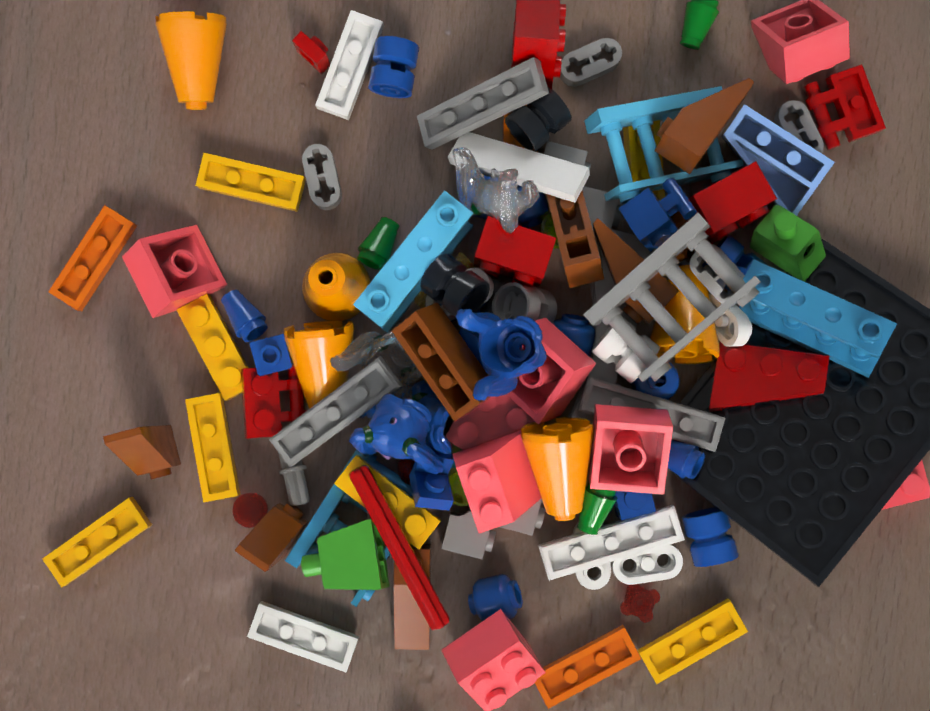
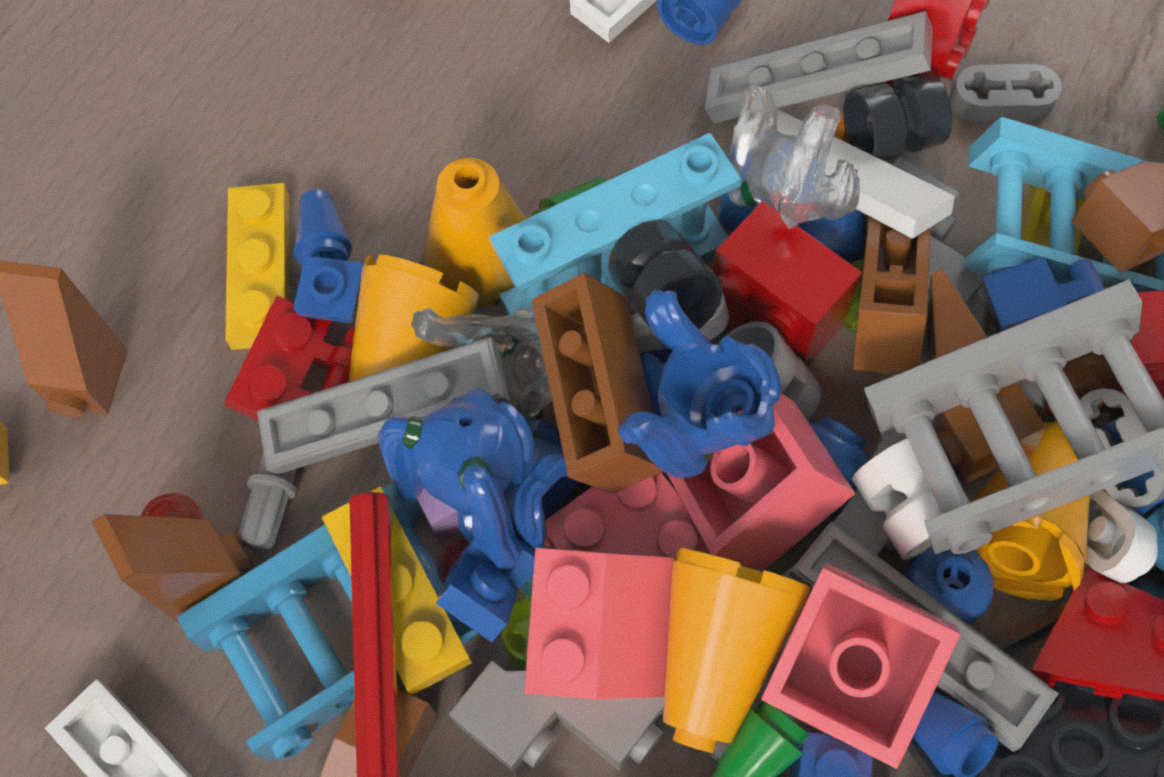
camera: 25 degrees right, 20 degrees down
(92, 258) = (152, 79): orange plate -> none
(173, 269) = (253, 129): coral slope -> none
(212, 447) = (167, 403): yellow plate -> none
(250, 182) = (428, 65): yellow plate -> none
(313, 177) = (522, 97): light grey beam -> none
(349, 559) = (283, 654): bright green torso -> none

